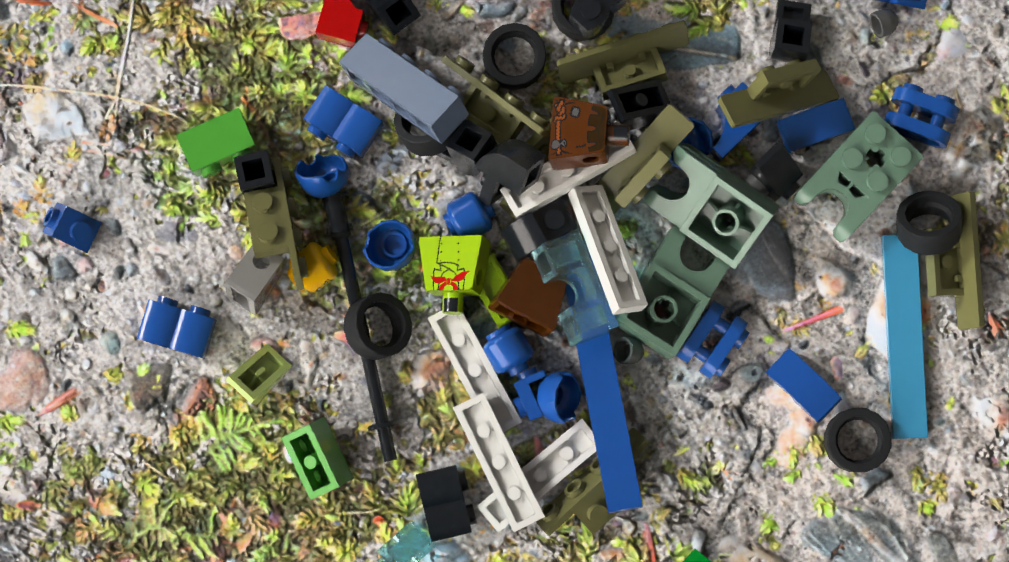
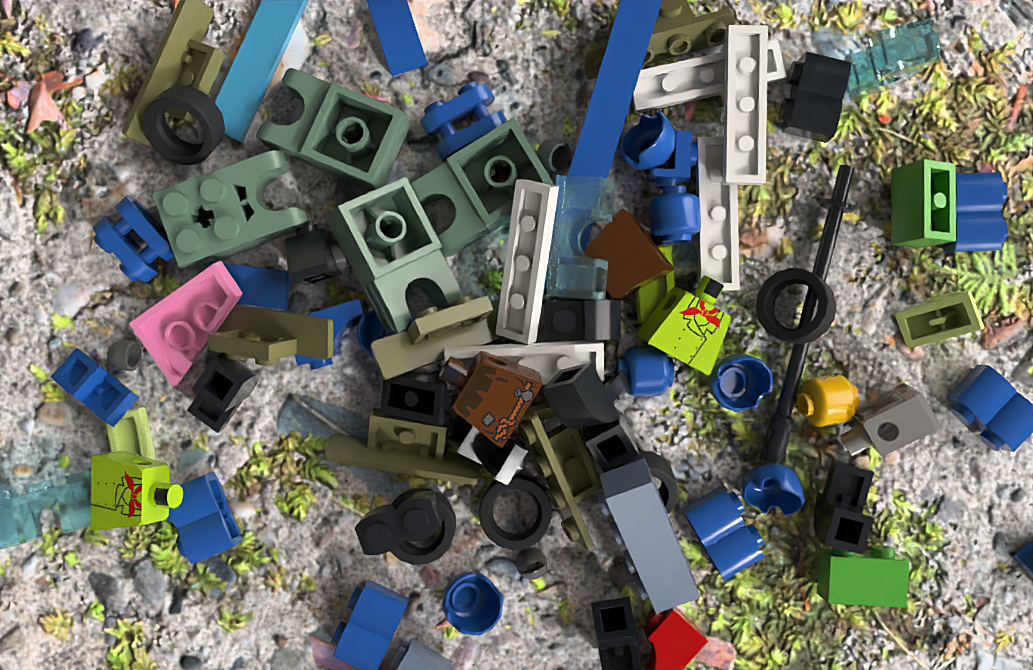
camera: 155 degrees left, 5 degrees up
(271, 222) = (853, 462): olive bracket -> none
(272, 475) = (979, 213): none -> blue brick
(484, 27) = (530, 556): none -> dark grey hinge
(547, 86) = (499, 462): none -> black brick
(817, 279) = (330, 122): none -> sand green brick
(847, 73) = (179, 325): none -> bright pink wing

